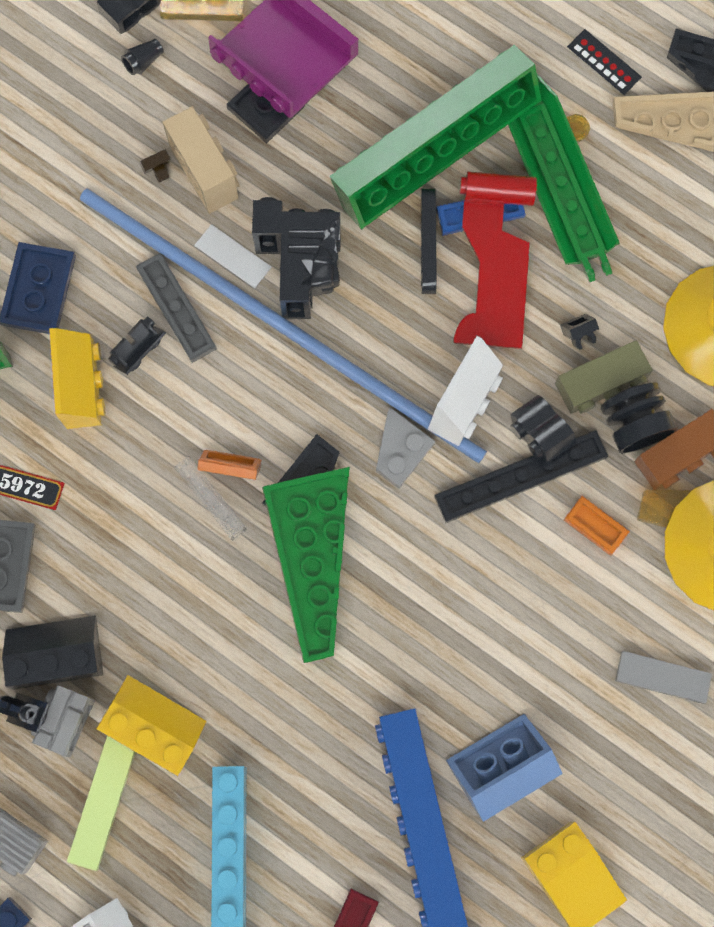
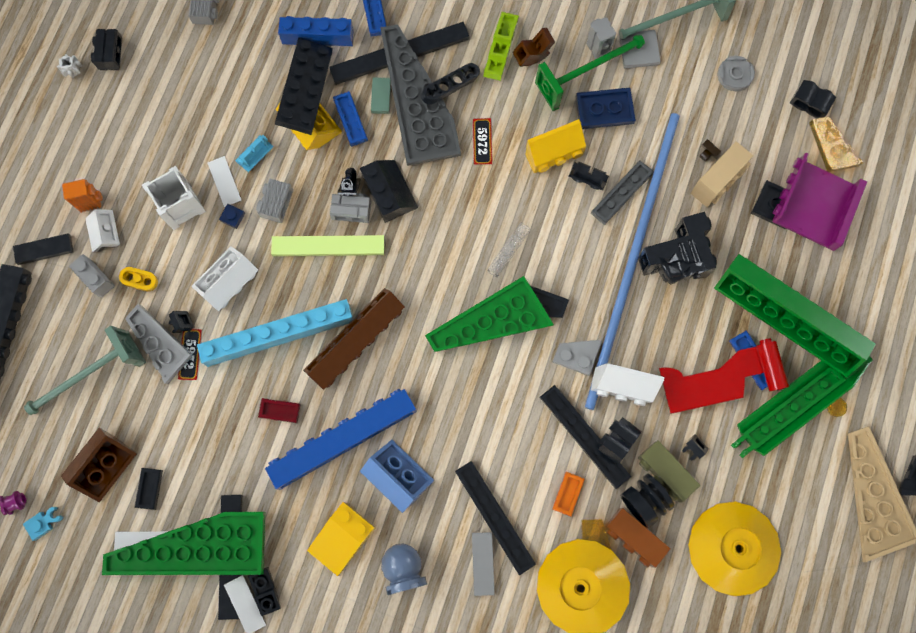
camera: 75 degrees right, 0 degrees up
(49, 89) = (735, 73): none -> light grey tile
(141, 56) = (779, 119): black cone -> none
(152, 725) = (361, 257): yellow slope -> none
(229, 464) = (533, 254): orange tile -> none
(233, 256) = (667, 216): white sticker -> none
(277, 773) = (354, 338): none -> reddish brown brick
(428, 241) = (721, 332): black beam -> none
(601, 640) = (495, 518): none -> black tile
(604, 62) = (893, 414): black sticker -> none
(643, 797) = (402, 568): none -> sand blue tile

